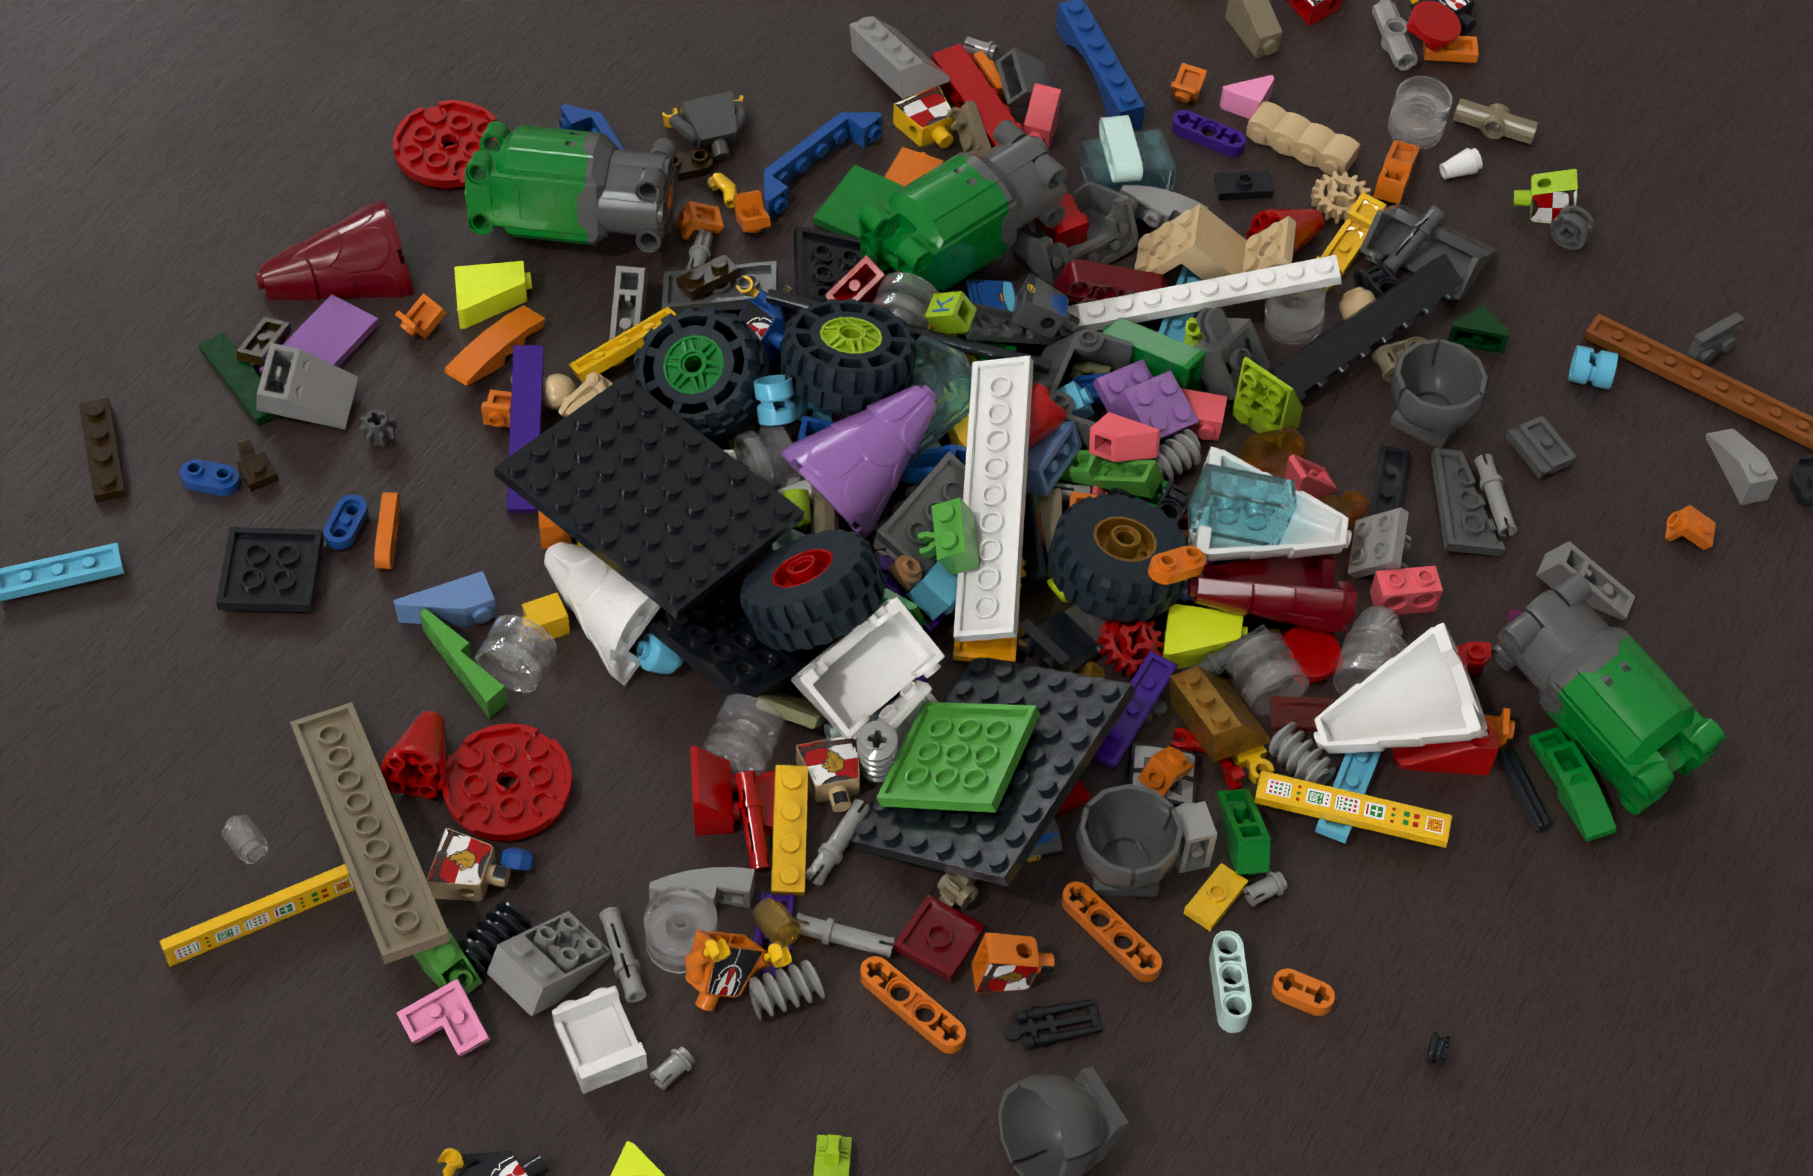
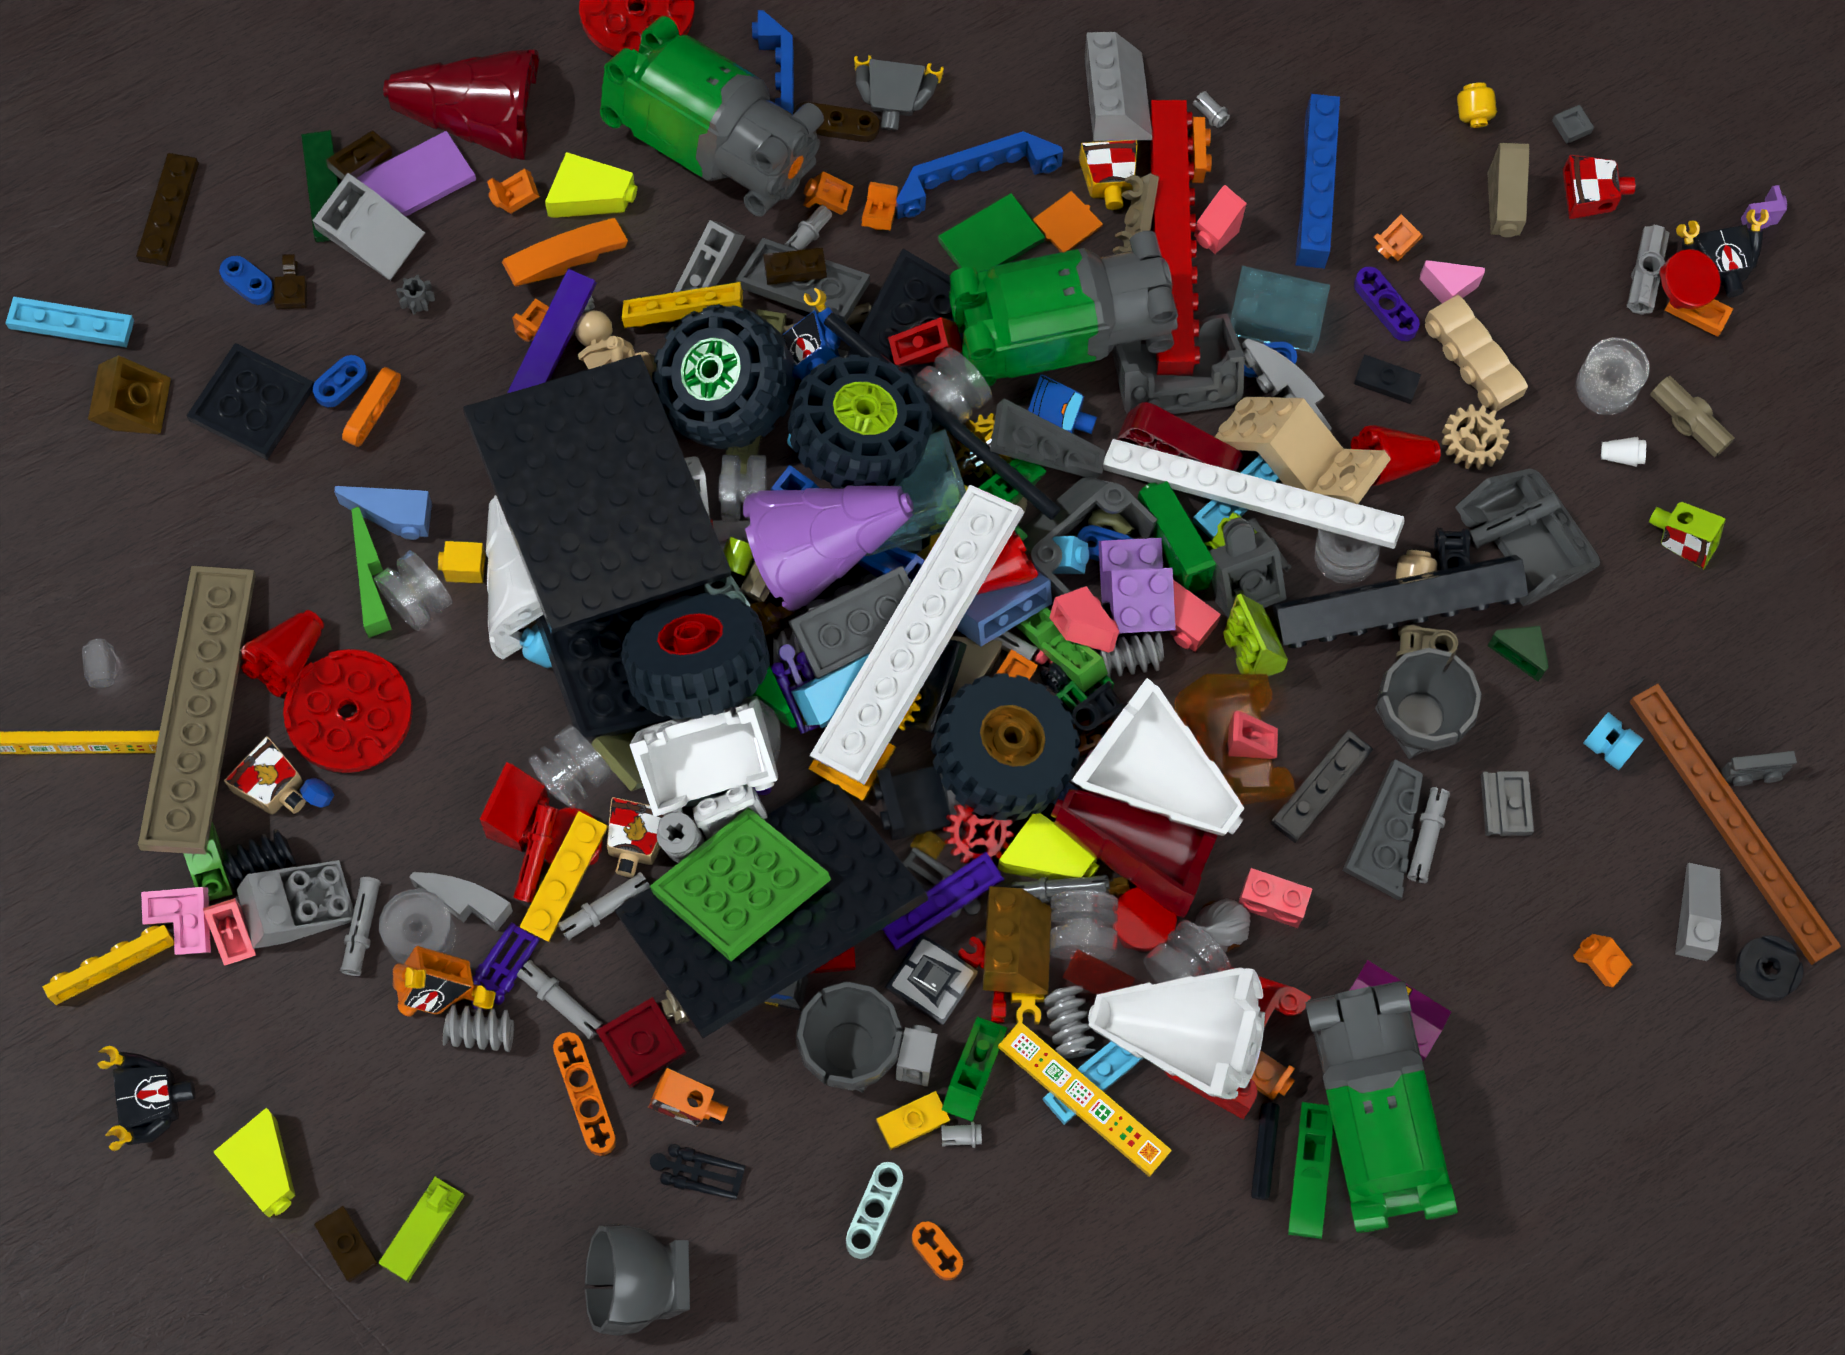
camera: 25 degrees right, 15 degrees up
(150, 609) = (129, 397): none -> pearl gold slope
(405, 1081) = (98, 969): none -> yellow plate
(501, 1009) = (229, 931): none -> coral slope
(598, 1039) = (299, 997): white panel -> none
(672, 1067) = (347, 1053): light grey pin -> none
(728, 188) = (874, 164): yellow arm -> none
(775, 389) = (770, 438): medium azure wheel -> none
(776, 922) = (502, 963): clear yellow brick -> none
(906, 571) = (799, 670): medium nougat plate -> none
(950, 312) = (985, 417): lime brick -> none
(953, 537) = (854, 659): bright green brick -> none
(1018, 76) = (1226, 164): dark grey torso -> none
(1042, 308) = (1092, 441): dark grey torso -> none
(1116, 927) = (800, 1108): orange beam -> none
(1120, 149) = (1268, 296): light aqua beam -> none
(1165, 769) = (932, 978): orange bracket -> none
(1176, 565) = (1045, 786): orange plate -> none
(1242, 505) = (1143, 751): clear light blue brick -> none
(1353, 232) = (1446, 493): yellow slope -> none
(1379, 543) = (1274, 839): light grey plate -> none
(1396, 171) = (1552, 430): orange slope -> none
(1571, 229) = (1691, 576): dark grey wheel -> none
(1608, 593) = (1458, 969): light grey slope -> none

